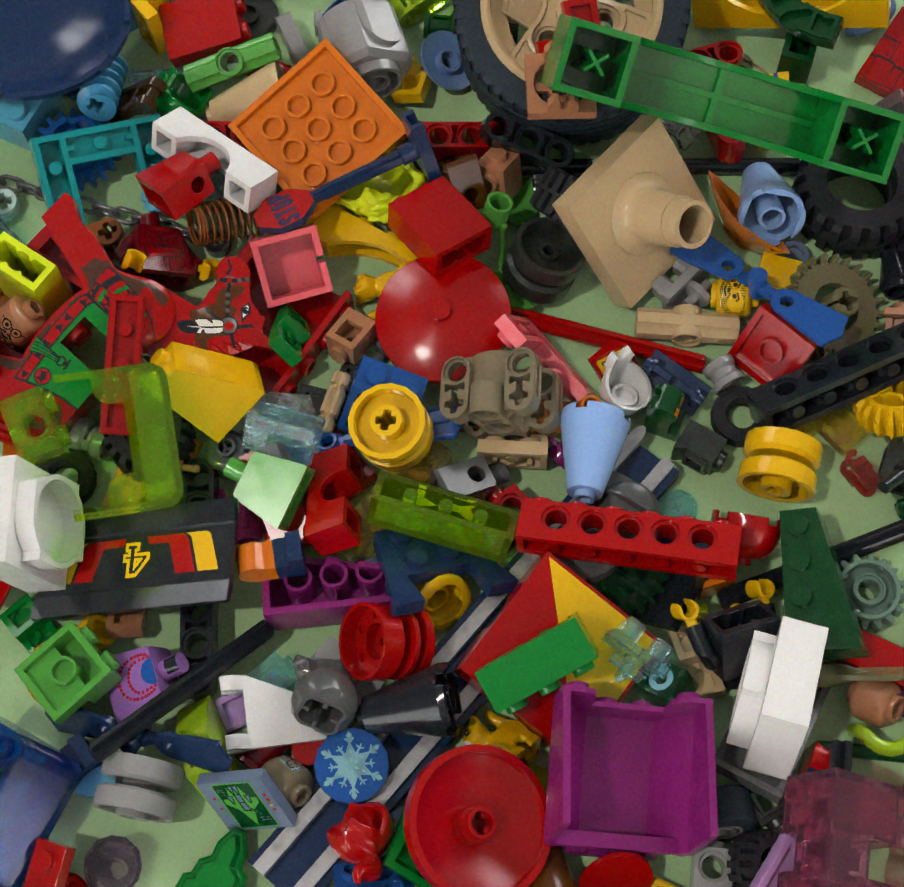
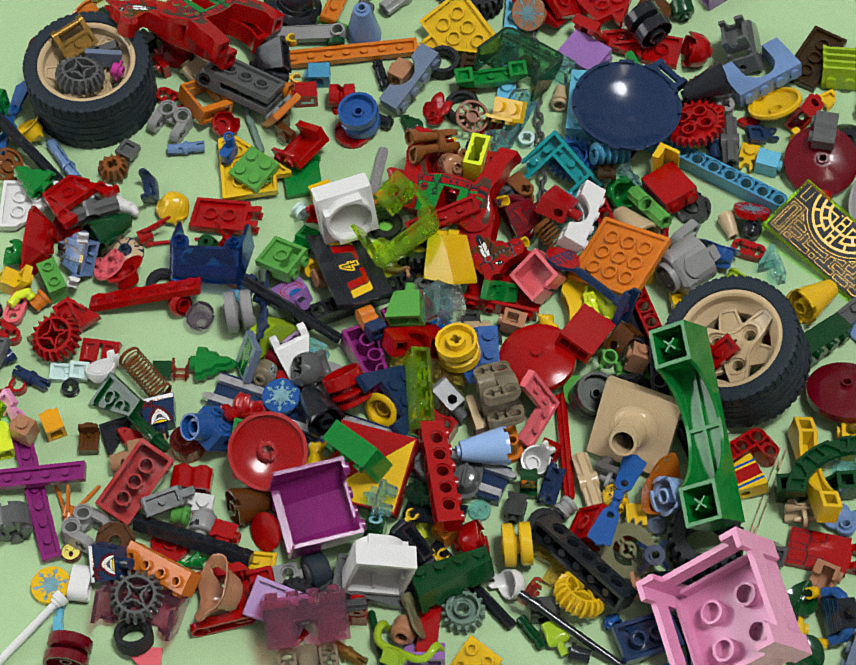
camera: 70 degrees right, 10 degrees down
(842, 501) = (509, 583): none -> white piece
(846, 52) = (798, 512): none -> tan hips
(870, 268) = (647, 557): none -> dark blue brick

